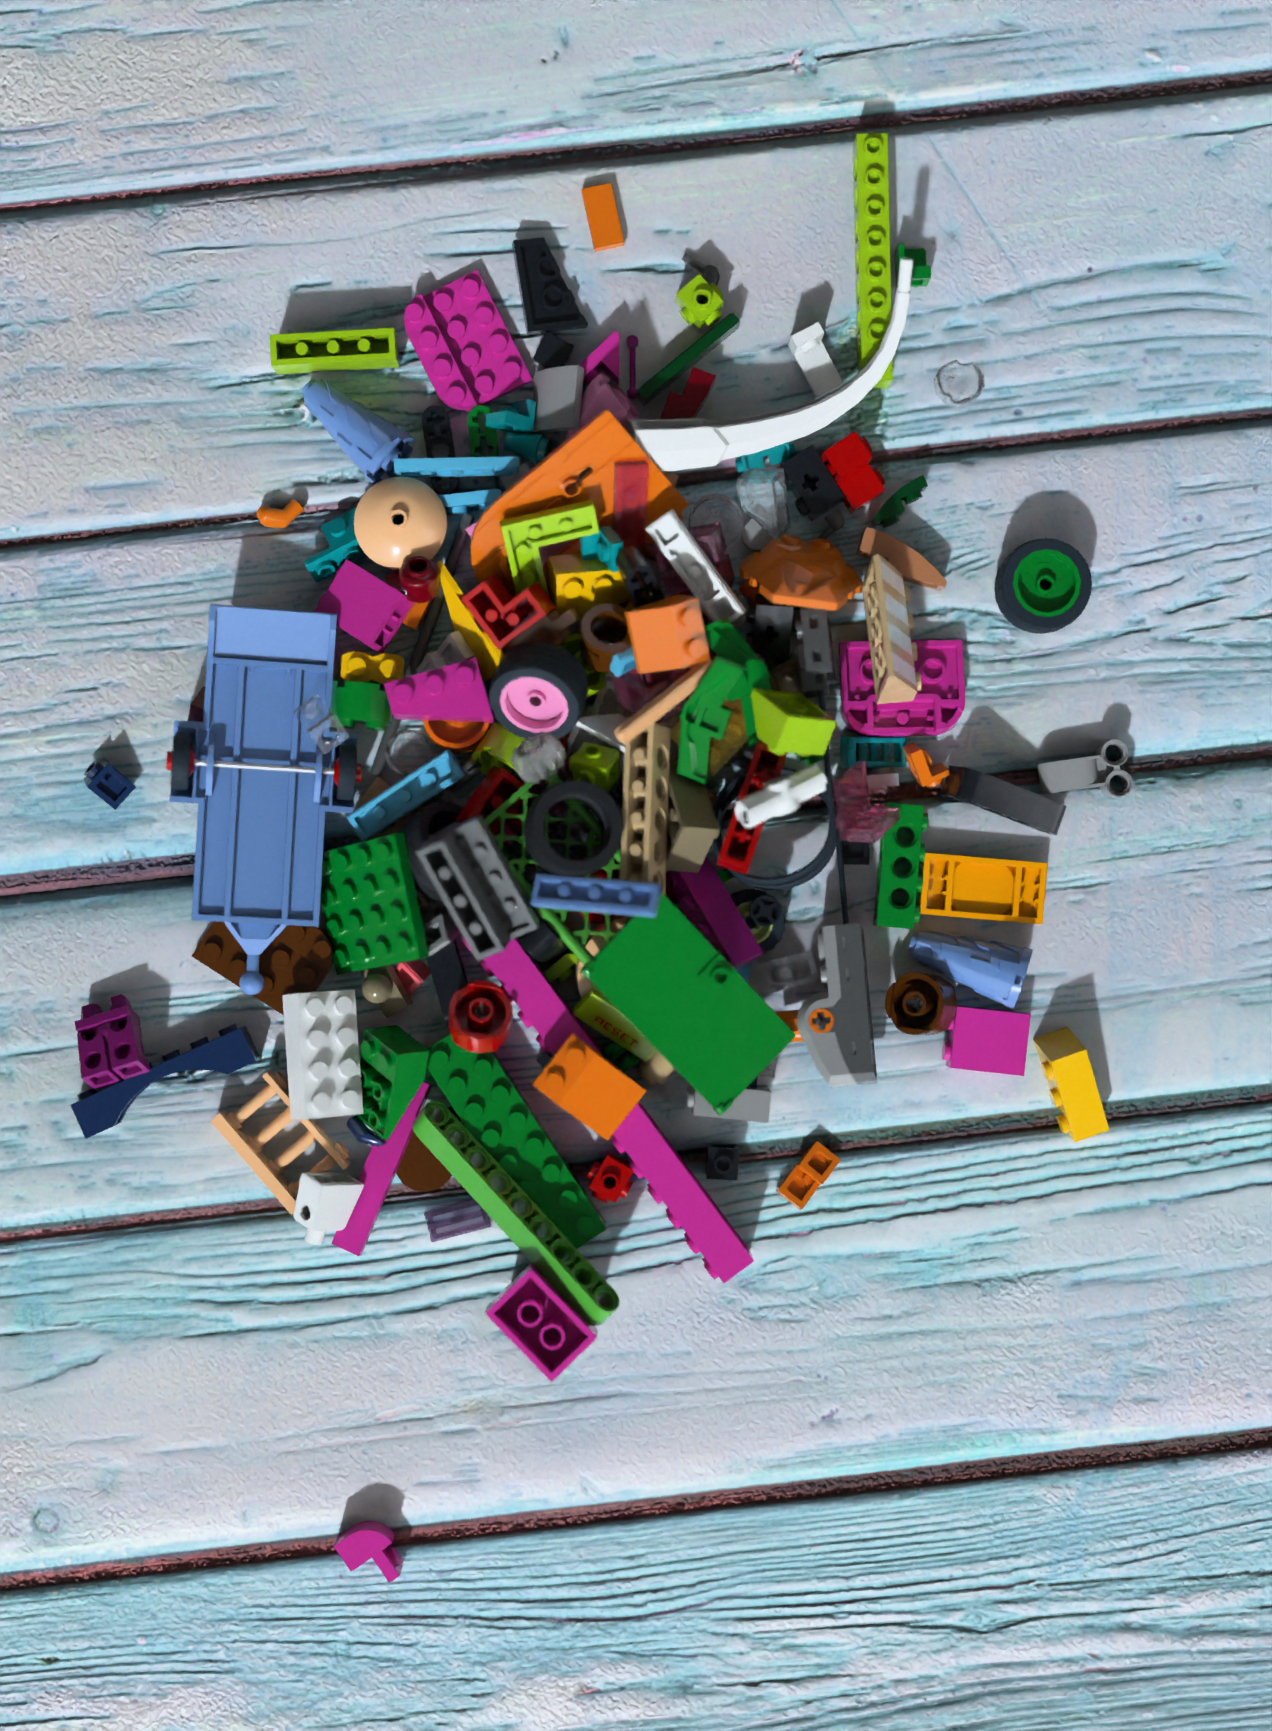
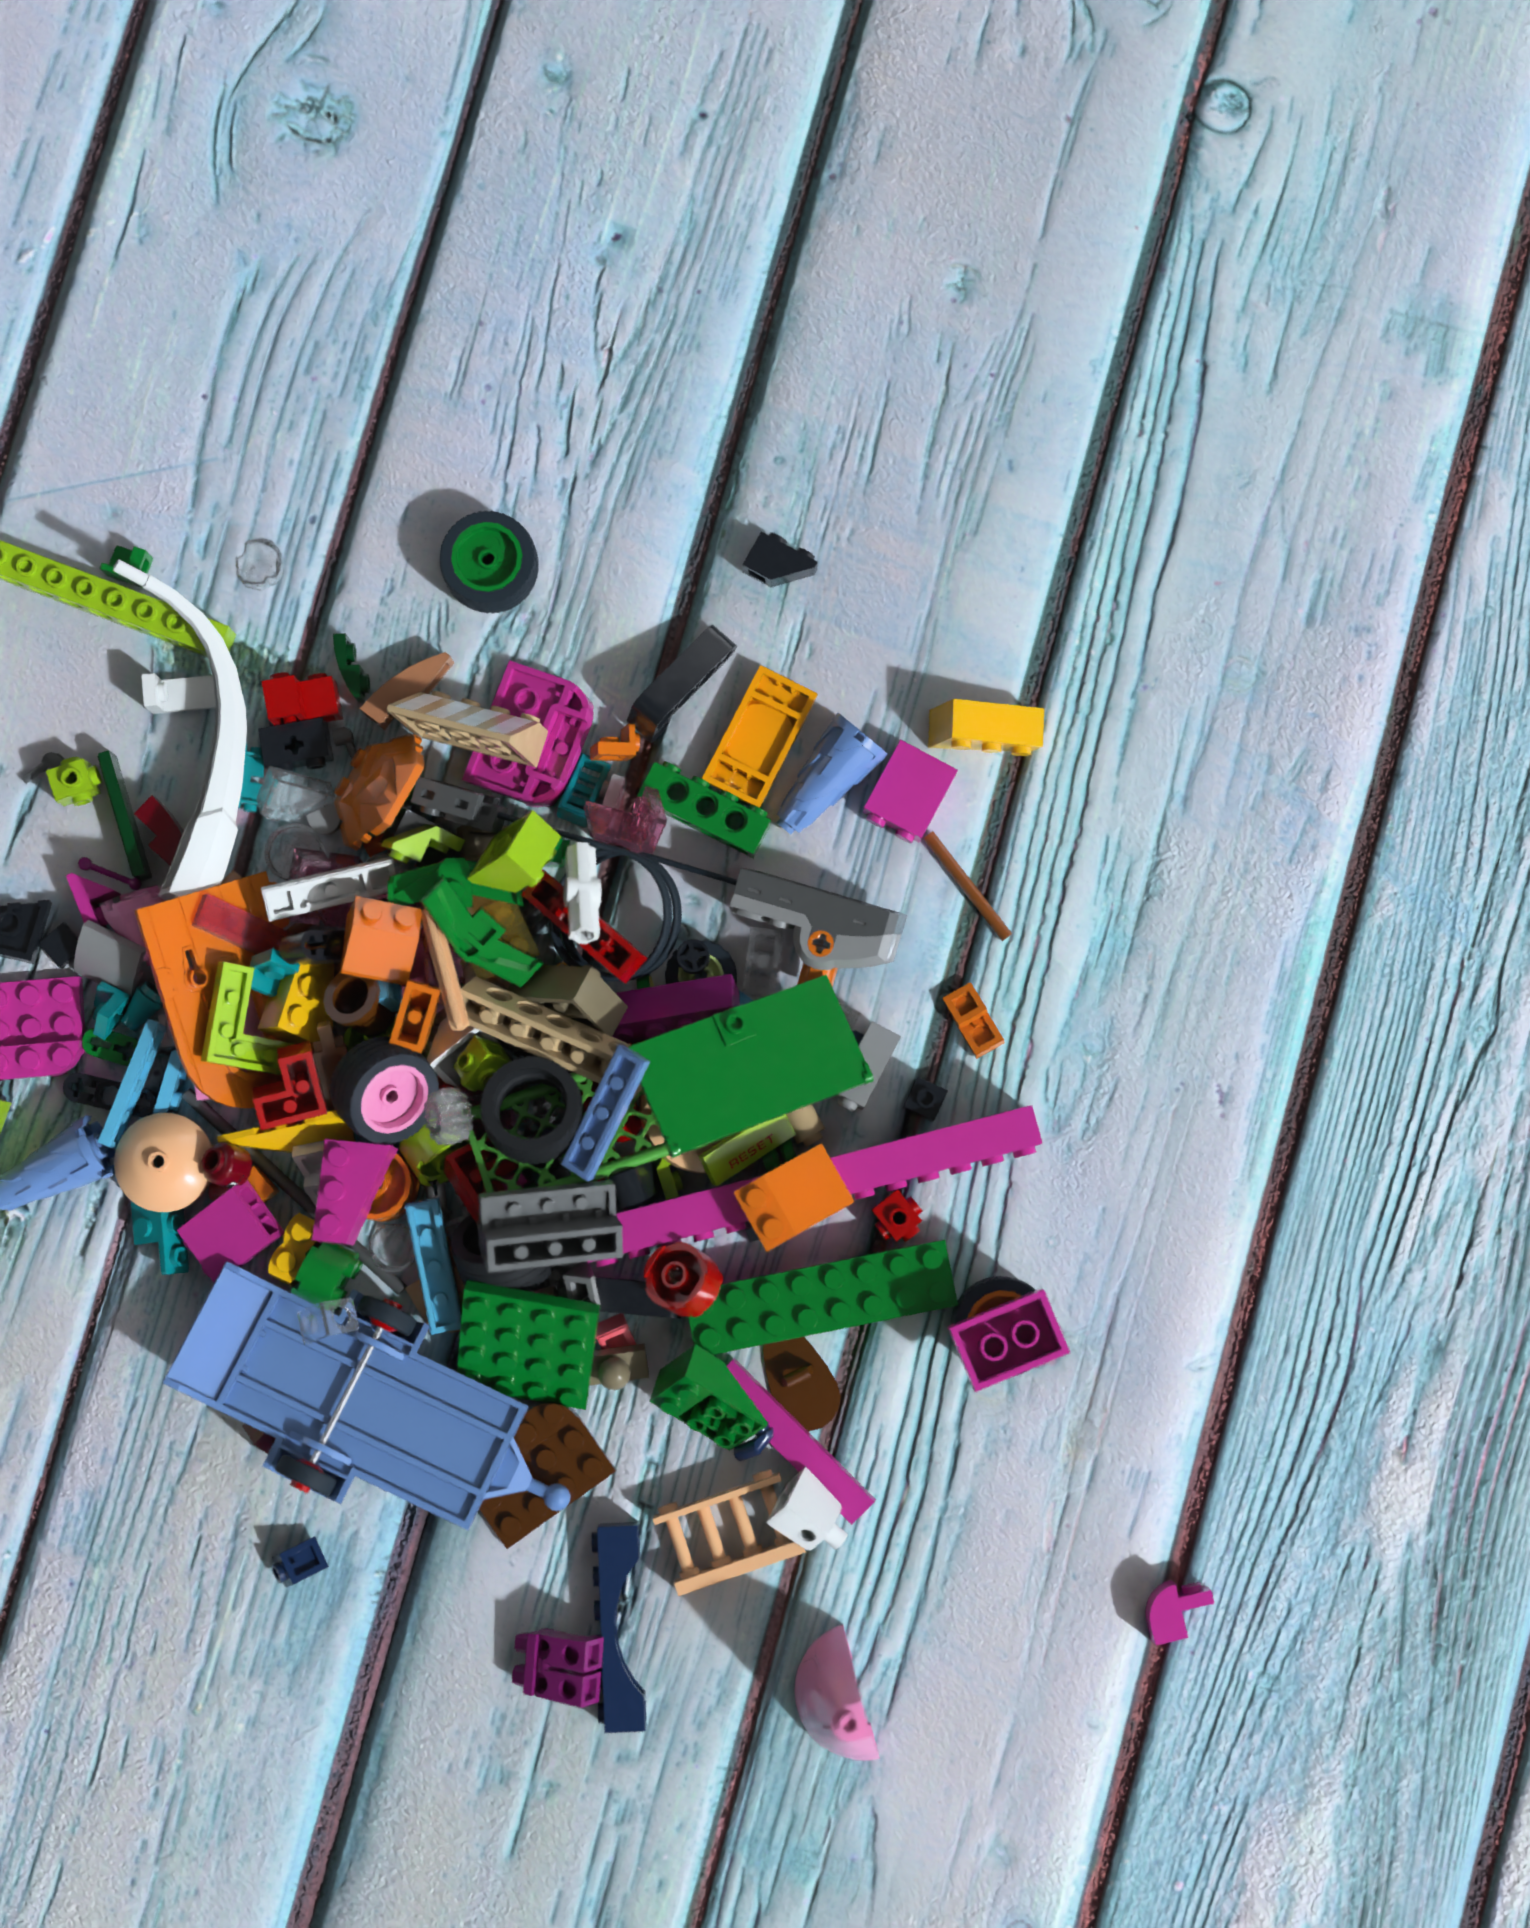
camera: 65 degrees left, 5 degrees down
(178, 1287) = (831, 1700): none -> bright pink cone
(279, 517) = (108, 1282): orange arm -> none
(322, 1054) = (656, 1454): white brick -> none
(432, 1226) = (875, 1416): clear purple tile -> none
(515, 1213) = (891, 1323): bright green beam -> none
(613, 693) = (415, 1016): none -> orange slope
(767, 626) = (414, 842): none -> lime slope
(855, 853) = (673, 846): black tile -> none
(924, 1123) = (967, 886): none -> dark orange bar
(937, 1009) = (848, 823): reddish brown brick -> none
(1087, 772) = (688, 592): light grey piece -> none
(1145, 840) = (777, 563): none -> black slope

